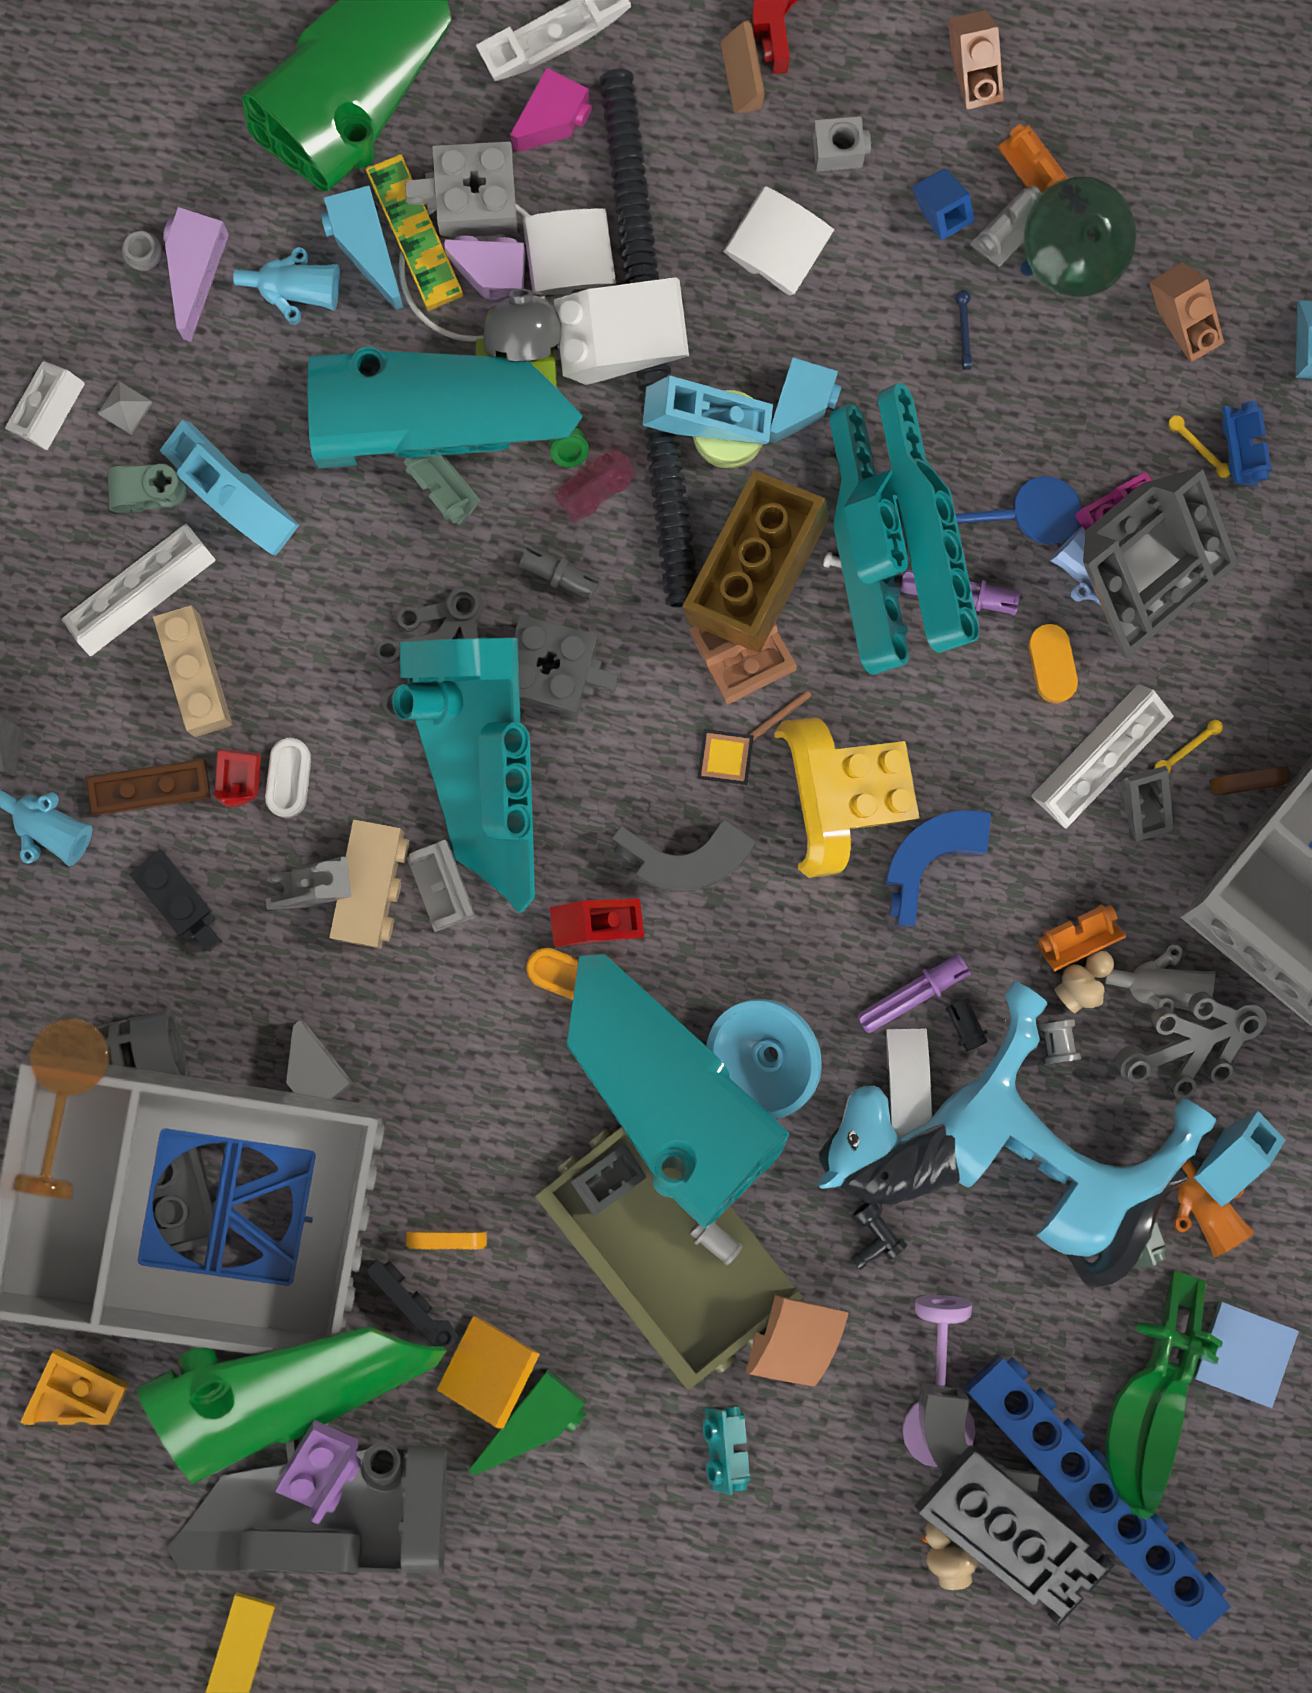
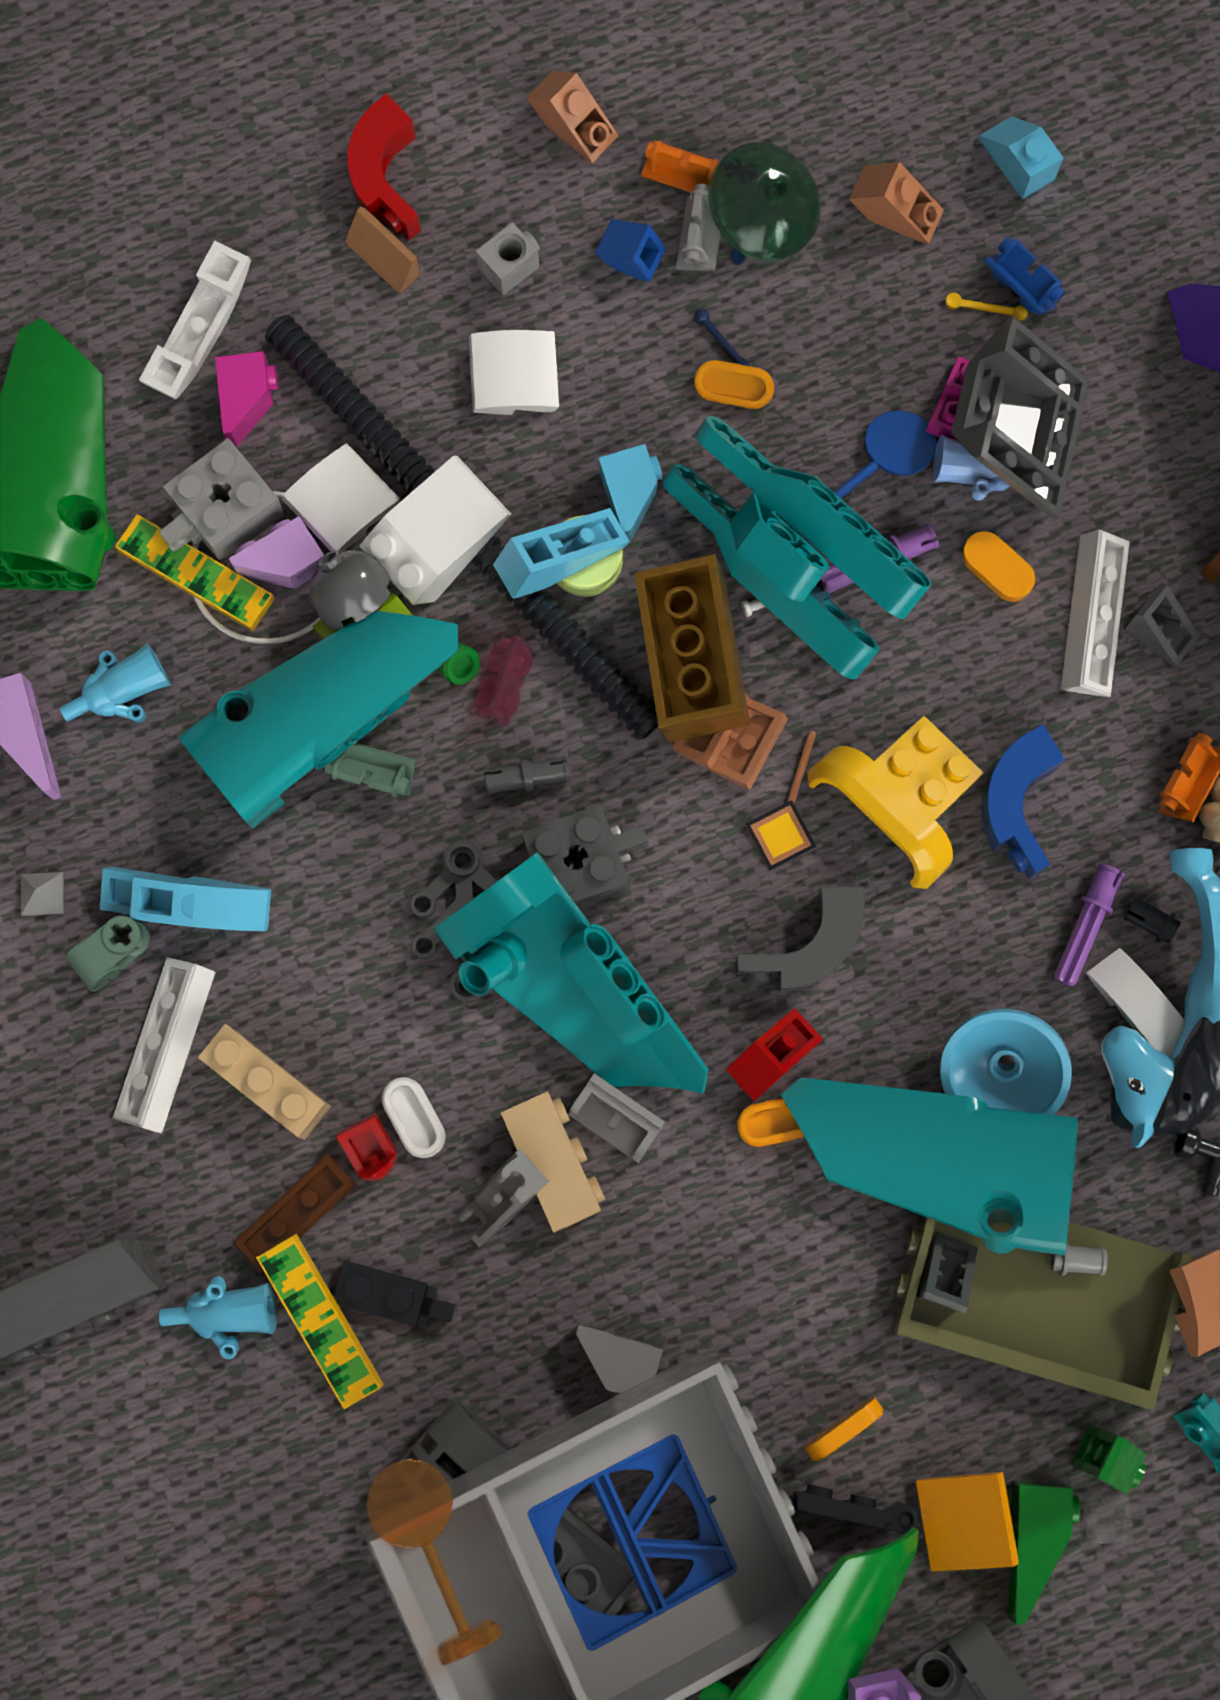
camera: 30 degrees left, 5 degrees down
(110, 881) = (320, 1321): none -> tile
(359, 235) = (153, 608): medium azure slope -> none
(628, 1405) = (1110, 1459): none -> green slope
(947, 371) = (734, 384): none -> light orange tile
(1213, 728) = (1169, 528): yellow hinge -> none

